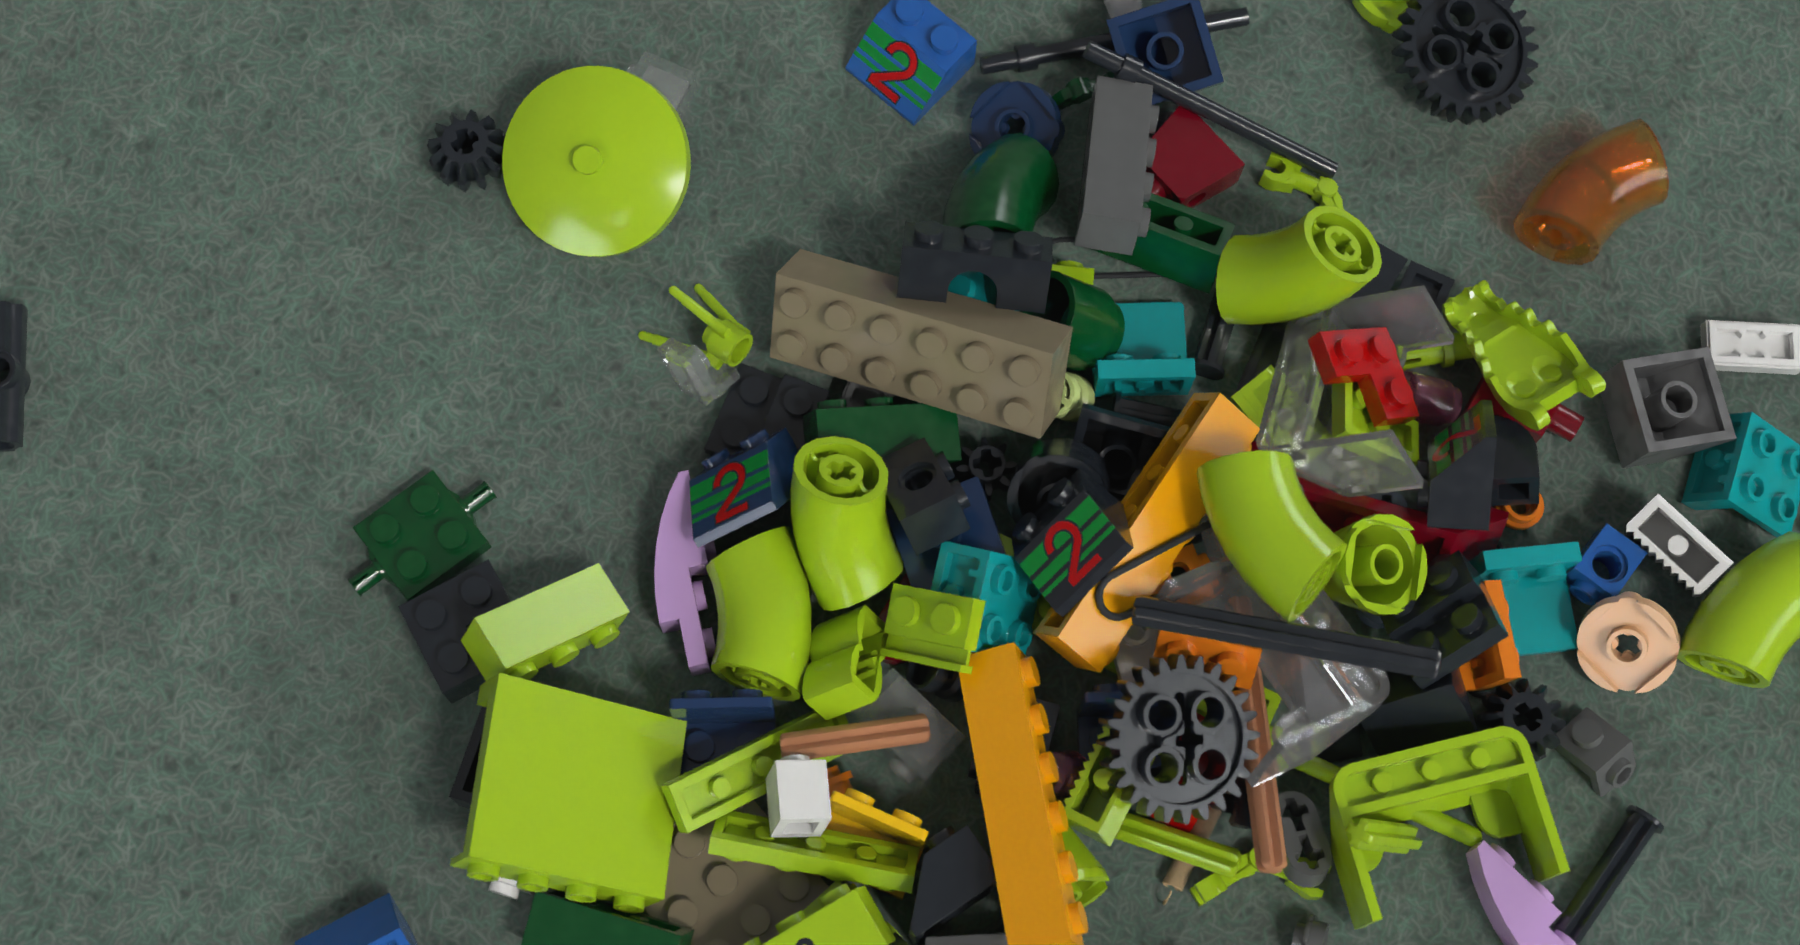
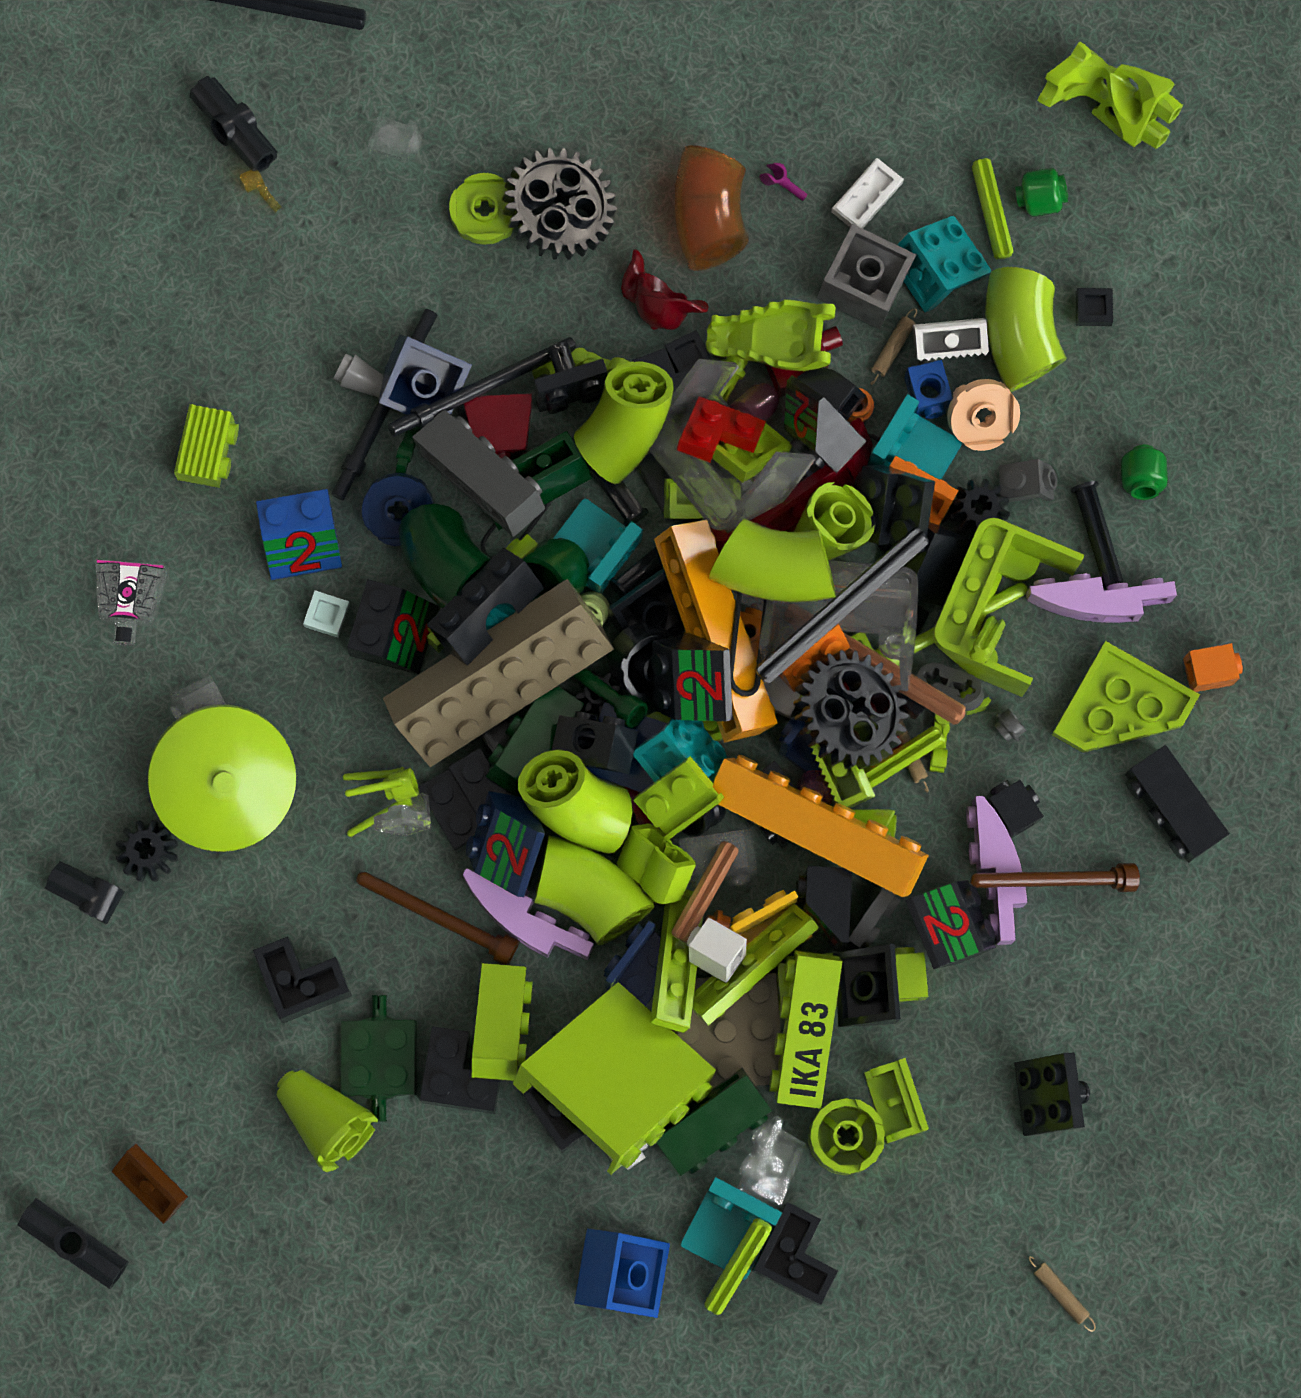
camera: 55 degrees left, 5 degrees up
(118, 405) = (149, 1183): none -> reddish brown plate
(310, 529) = (325, 1118): none -> lime cone
(382, 133) = (91, 895): none -> black piece
(430, 393) = (298, 990): none -> black brick
(635, 573) = (500, 947): none -> reddish brown piece
(851, 142) = (326, 614): none -> light aqua plate
(877, 201) = (391, 627): none -> black slope
(988, 500) = (625, 706): none -> dark green piece
(1283, 189) = (568, 381): none -> black plate
(1451, 213) = (654, 299): none -> dark red hair
(1616, 496) = (893, 345): none -> tan piece
(1688, 249) = (780, 178): none -> magenta hand
(1719, 873) = (1144, 472): none -> green head

